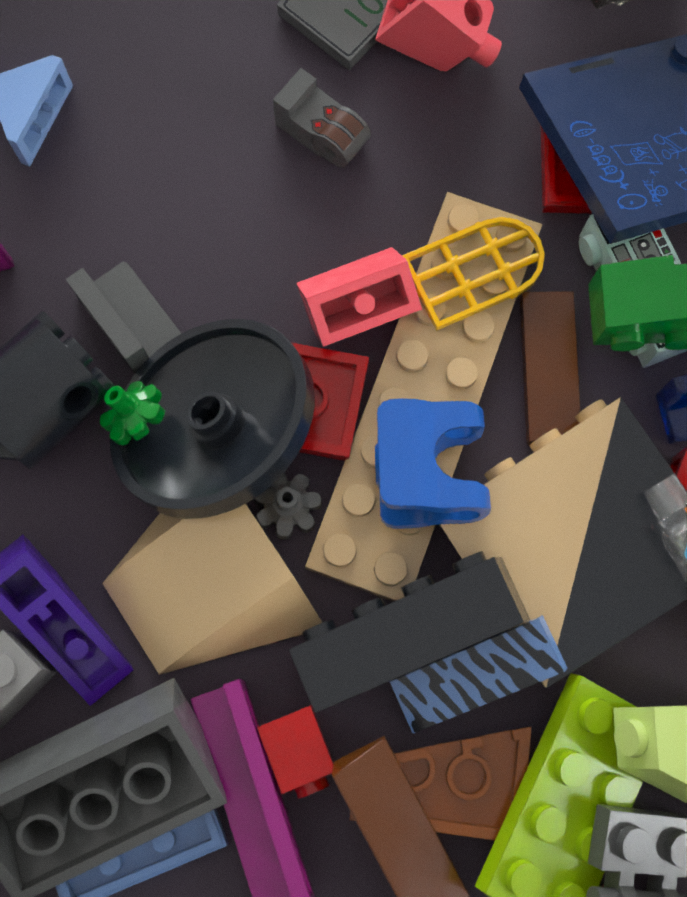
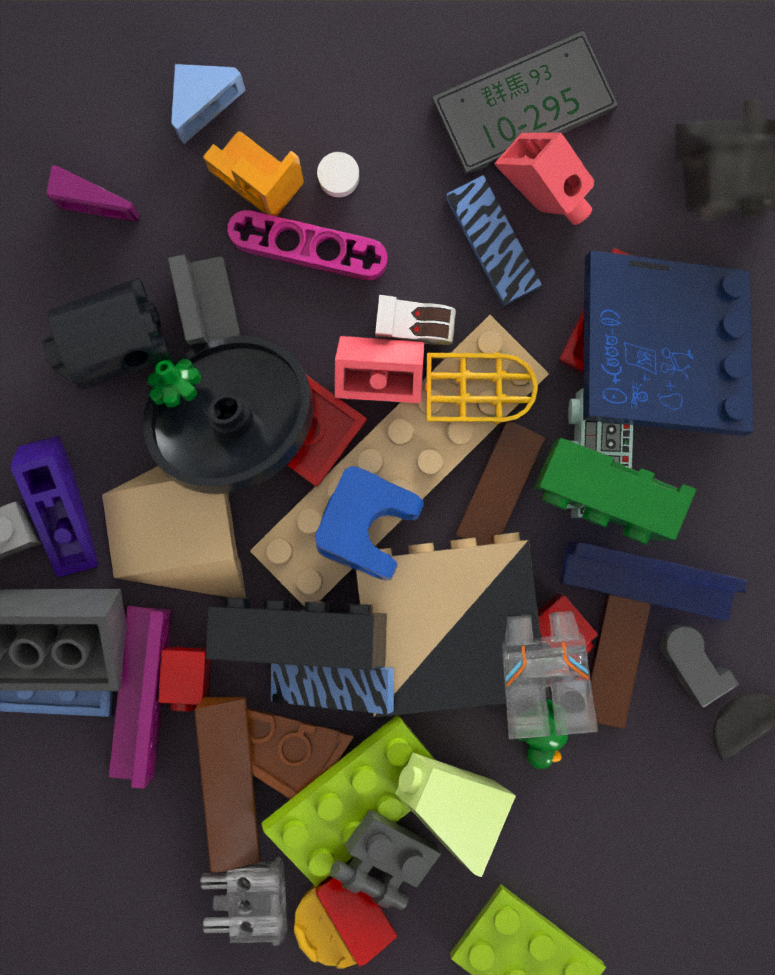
camera: 20 degrees right, 10 degrees up
(124, 159) = (256, 173): none -> light orange panel
(212, 199) = (306, 251): none -> dark pink beam
(213, 123) = (338, 174): none -> white tile
(288, 514) = (263, 508): dark grey plant -> none
(319, 120) = (419, 211): dark grey leg -> none
(369, 231) = (414, 321): none -> white leg
(412, 119) = (493, 241): none -> tile

